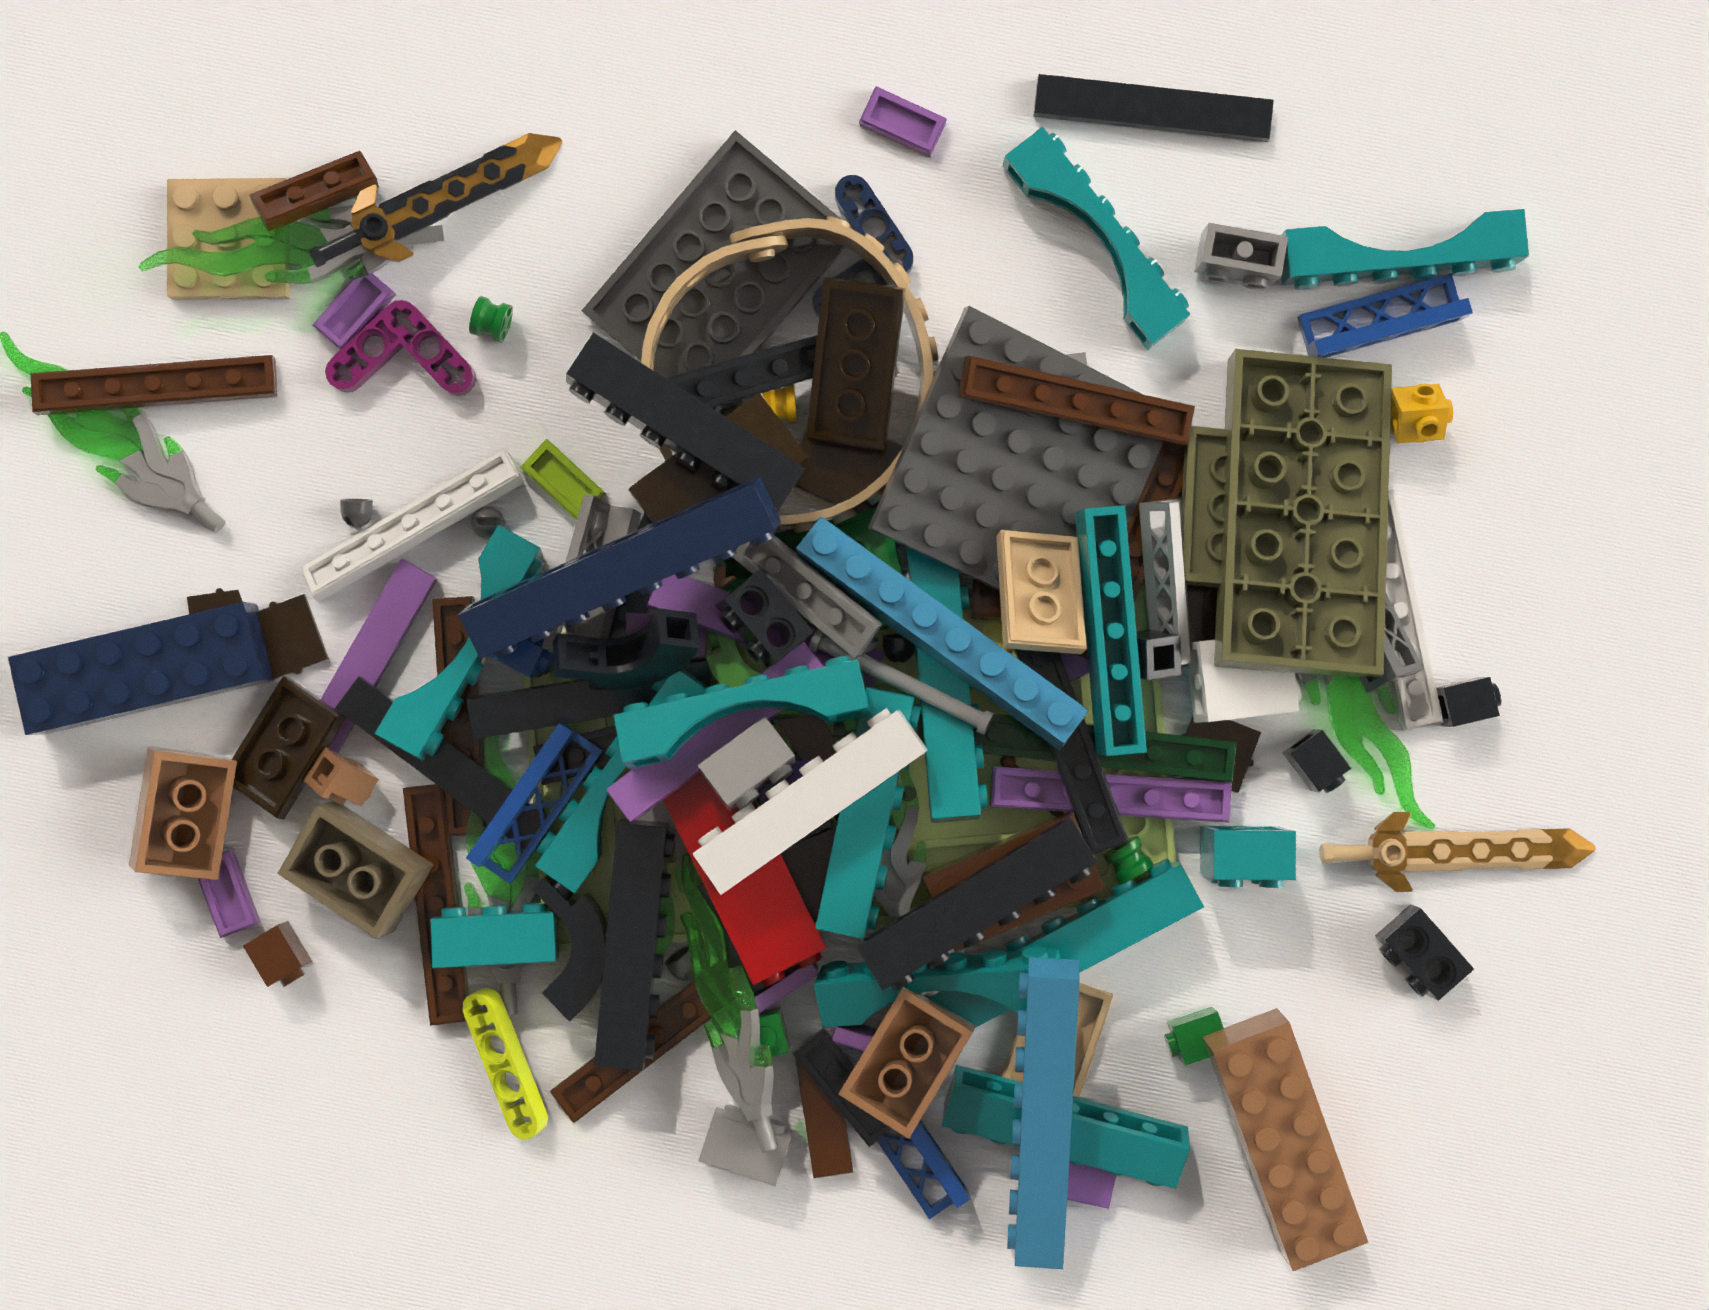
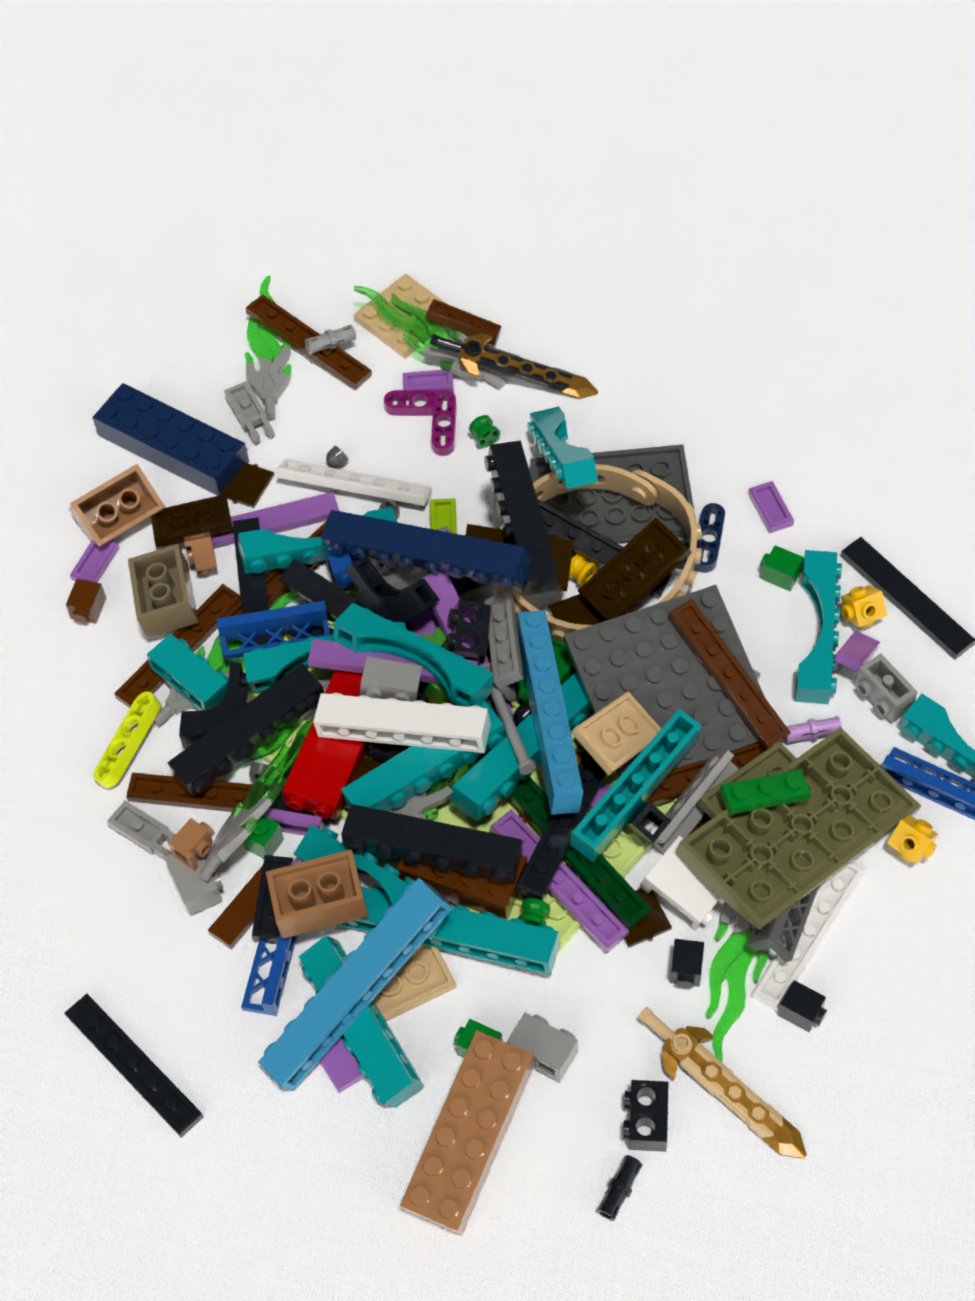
camera: 45 degrees right, 30 degrees down
(184, 363) = (330, 339): none -> light grey pin
(185, 542) = (248, 410): none -> light grey hinge
(633, 1140) = (141, 828): none -> light grey hinge
(677, 303) = (570, 463): none -> teal arch
(721, 1128) = (191, 843): none -> medium nougat brick
(992, 197) = (781, 567): none -> green brick
(1126, 169) = (863, 606): none -> yellow brick
(1168, 233) = (857, 651): none -> medium lavender tile
(1201, 370) = (813, 729): none -> lavender pin
(1245, 513) = (765, 792): none -> green plate
(1248, 853) = (600, 967): teal brick -> none
(1264, 982) = (551, 1047): none -> light grey brick
(1459, 1044) = (619, 1188): none -> black pin

